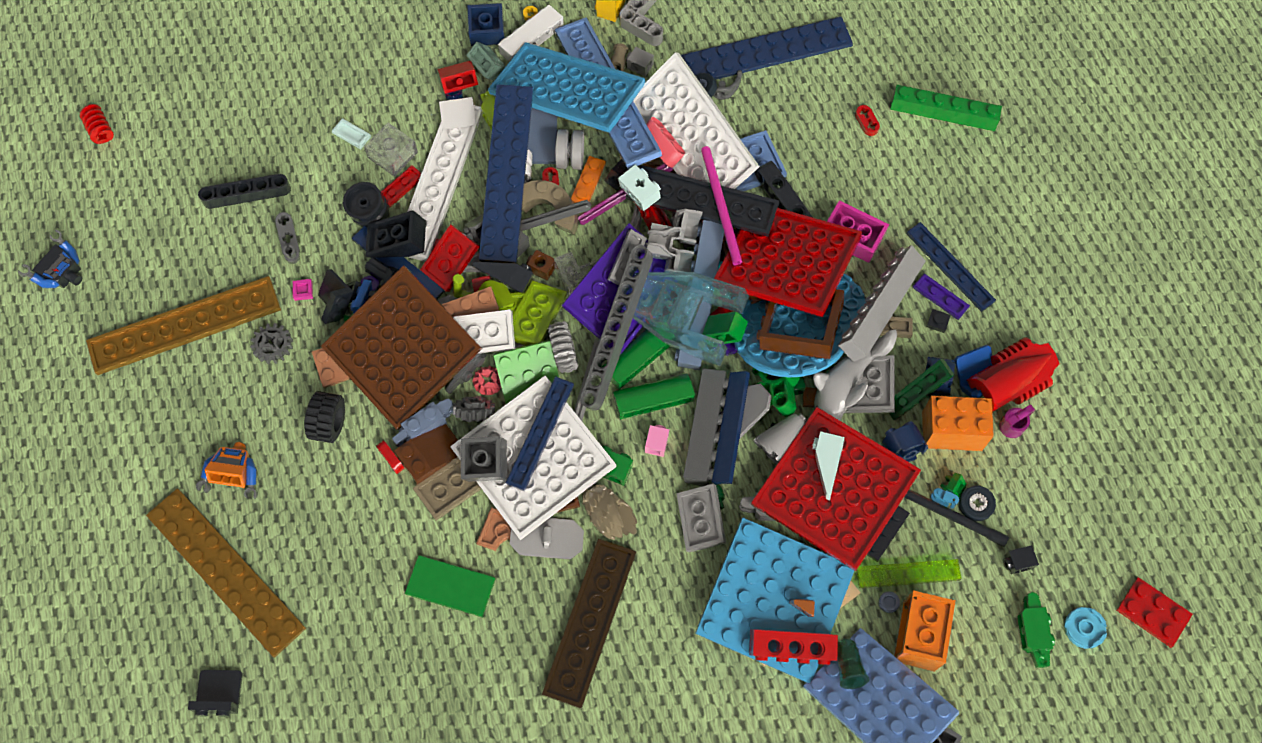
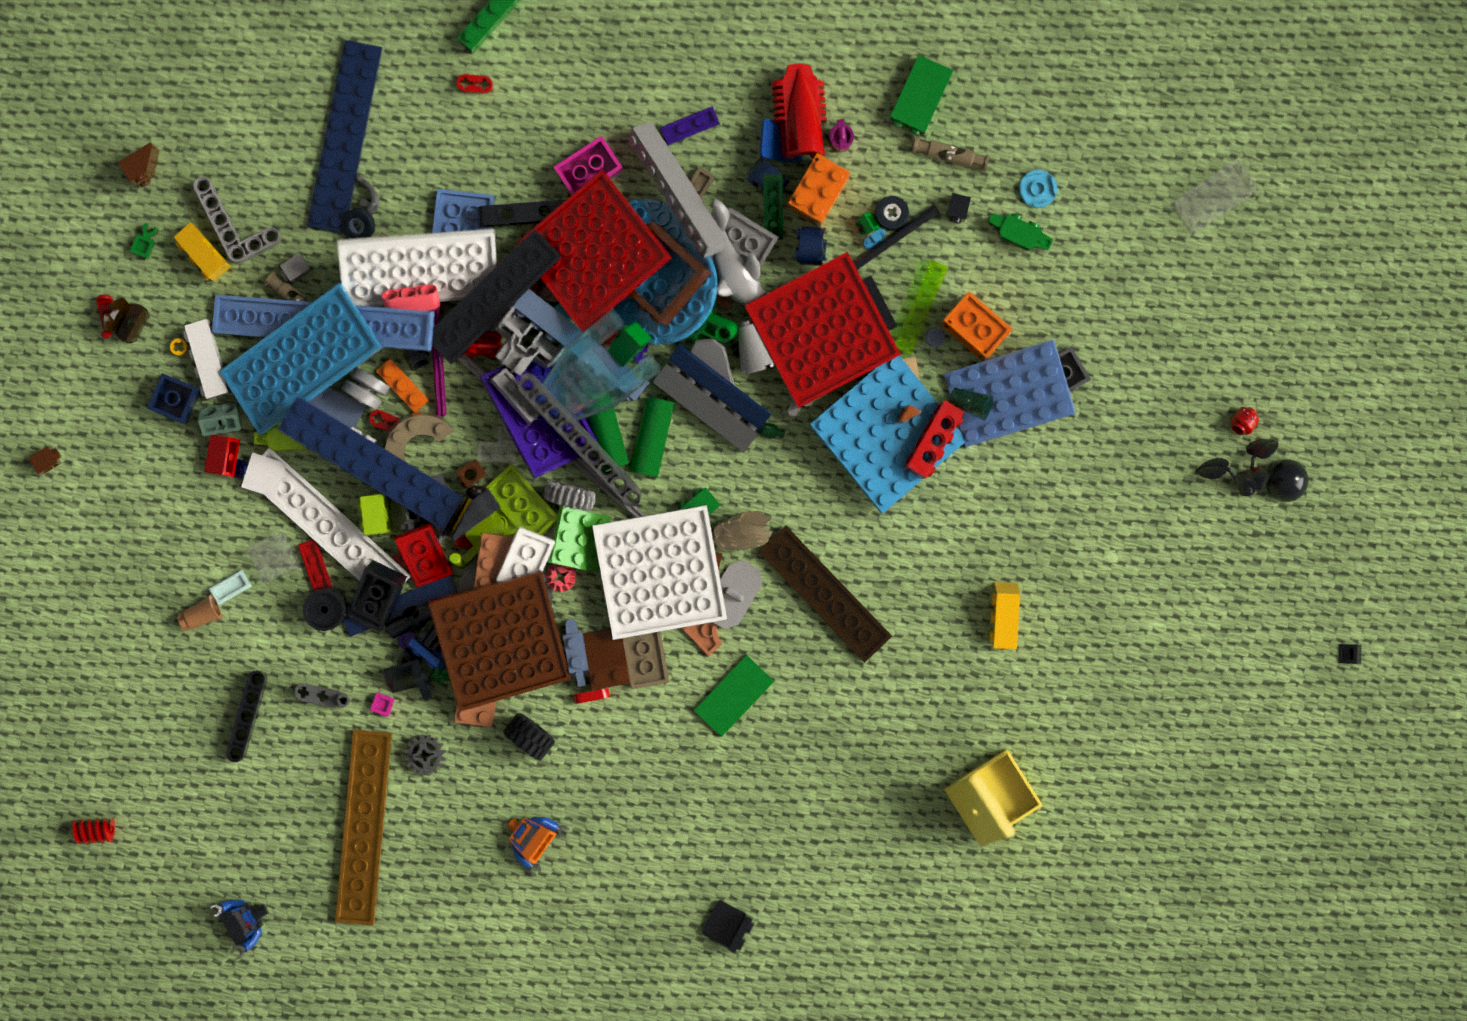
camera: 60 degrees left, 20 degrees up
(226, 573) = (622, 880): pearl gold plate -> none
(317, 120) = (200, 614): none -> medium nougat plant
(464, 204) = (374, 515): none -> lime brick
(473, 408) = (586, 602): dark grey gear -> none
(483, 459) = (645, 616): dark grey brick -> none
(539, 434) = (644, 556): dark blue tile -> none
(555, 215) = (434, 436): dark grey axle -> none
(639, 187) = (444, 355): light aqua brick -> none
(657, 440) = (696, 456): bright pink brick -> none
(701, 518) = (785, 455): light grey plate -> none
(721, 205) = (511, 284): dark pink piece -> none
(827, 456) = (795, 323): light aqua slope -> none
(938, 320) = (712, 143): black plate -> none
(951, 267) = (665, 99): dark blue tile -> none
(1067, 538) = (964, 156): none -> dark tan piece
(1097, 474) = (920, 95): none -> green brick
(1154, 612) = (1055, 124): red plate -> none

